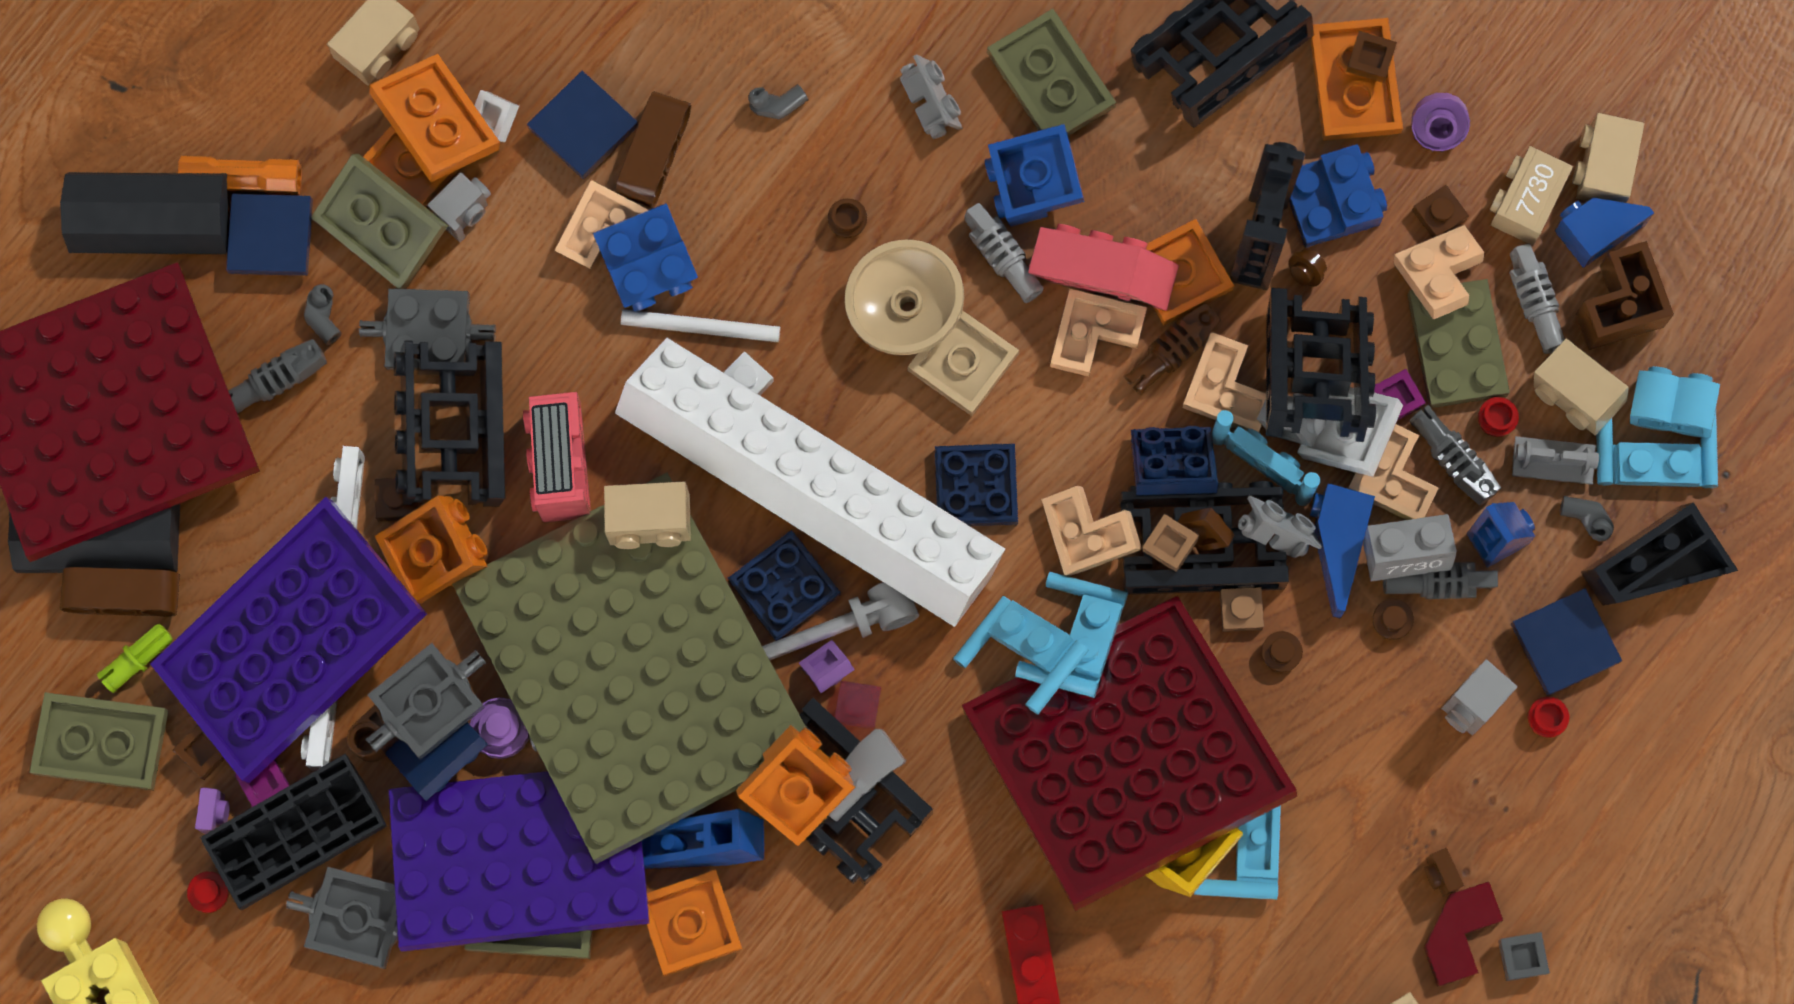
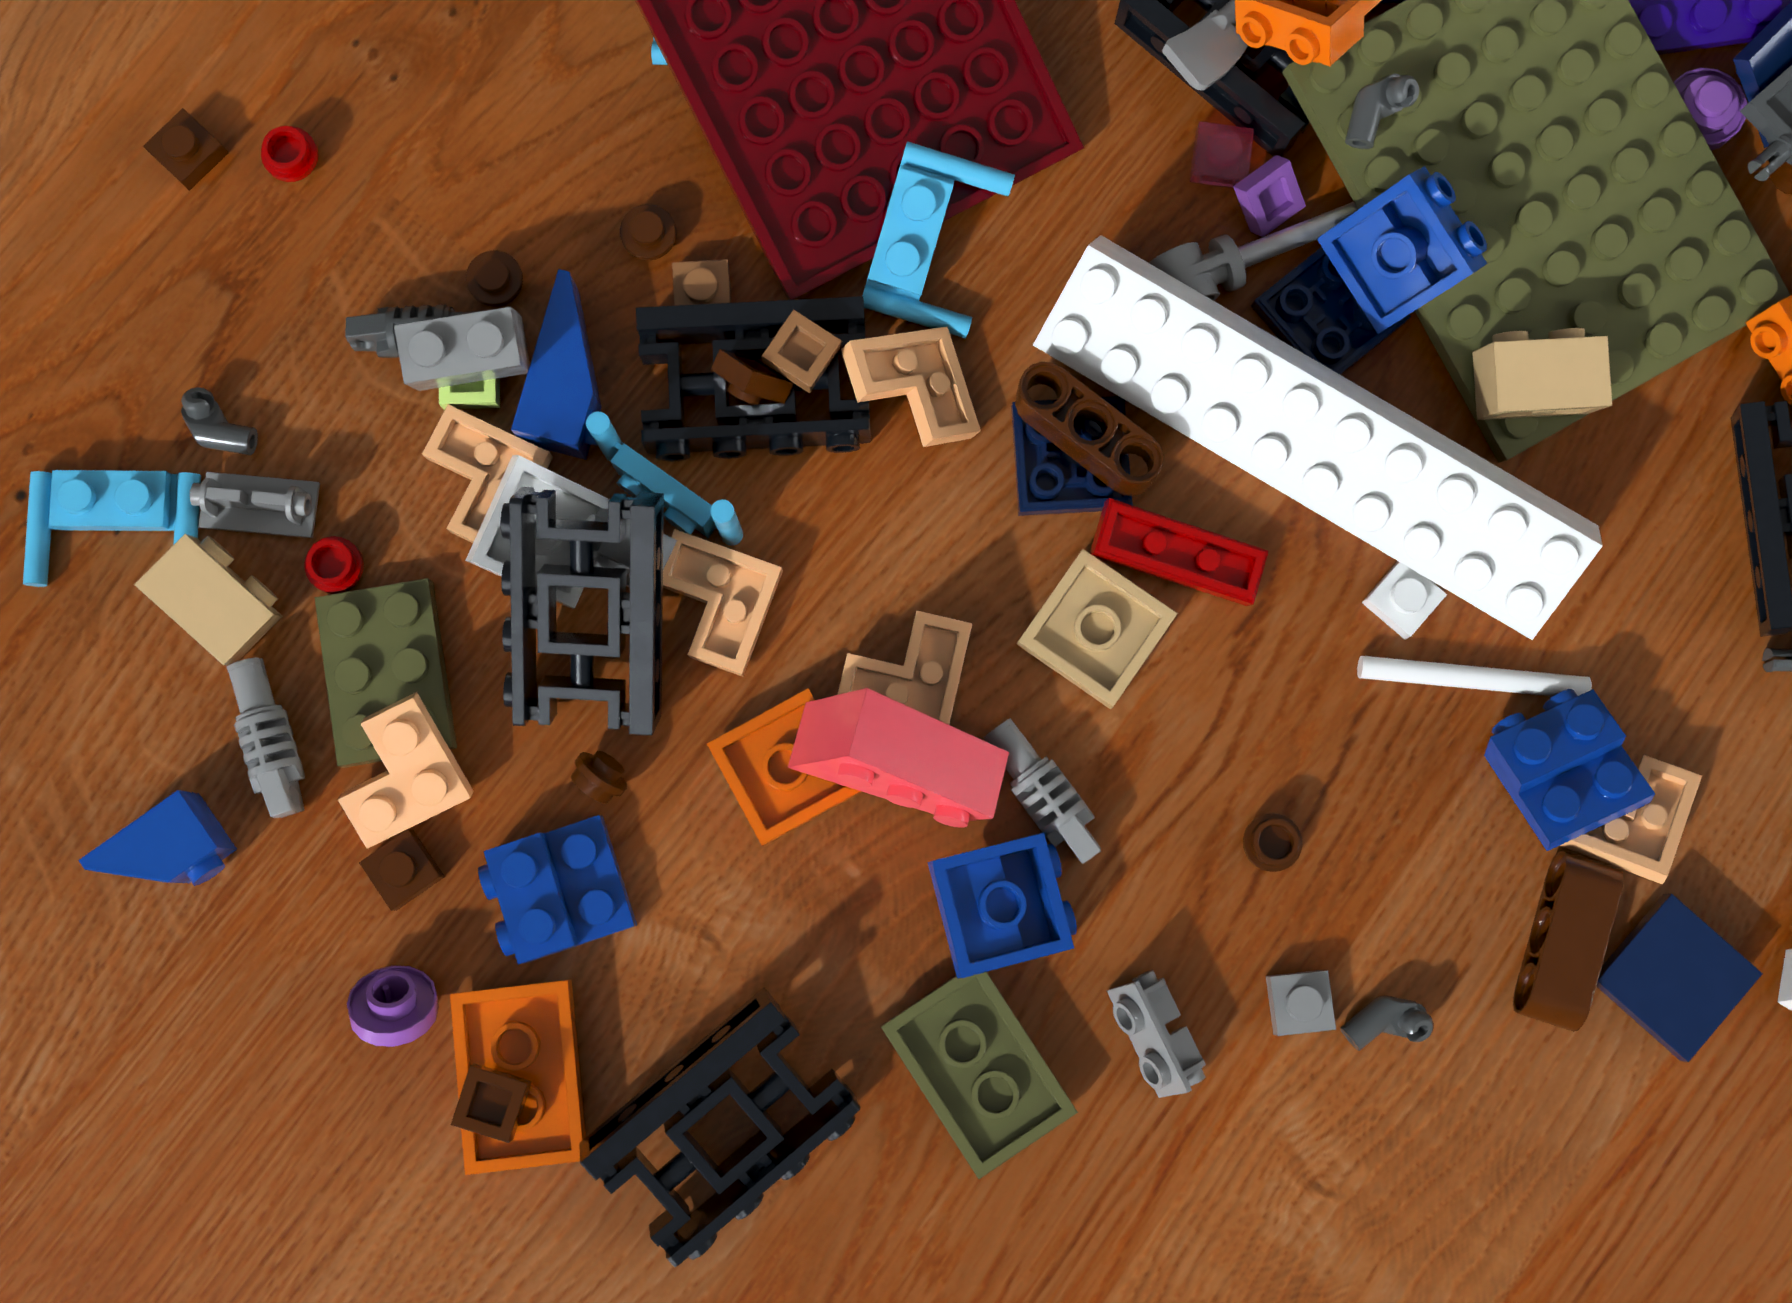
camera: 175 degrees right, 5 degrees up
(557, 457) = (1668, 465): wedge -> none
(739, 602) = (1404, 248): none -> blue plate
(755, 707) = (1377, 102): none -> dark grey arm
(833, 116) = (1300, 1002): none -> light grey plate
(902, 274) = (1224, 701): tan dish -> none
(903, 411) = (1179, 552): none -> red tile
(962, 467) = (1078, 403): none -> reddish brown beam
(1030, 638) = (992, 220): medium azure plate -> none
(1174, 347) = (793, 655): reddish brown hinge -> none
(1174, 461) = (795, 481): dark blue tile -> none
(1262, 236) = (653, 819): black fence -> none
(1291, 532) = (647, 382): light grey hinge -> none
(1403, 388) = (472, 592): magenta plate -> none
(1456, 457) = (395, 502): dark grey hinge -> none
(1478, 698) = (378, 152): light grey brick -> none
(1501, 532) = (330, 379): blue slope -> none
(1531, 194) = (264, 894): tan brick -> none
(1566, 642) = (257, 249): dark blue tile -> none
(1609, 158) = (143, 952): tan brick -> none
(1626, 723) = (186, 149): none -> reddish brown plate
(1634, 300) = (119, 727): reddish brown brick -> none
(1660, 558) = (118, 355): black wedge -> none
(1675, 402) = (75, 581): medium azure brick -> none

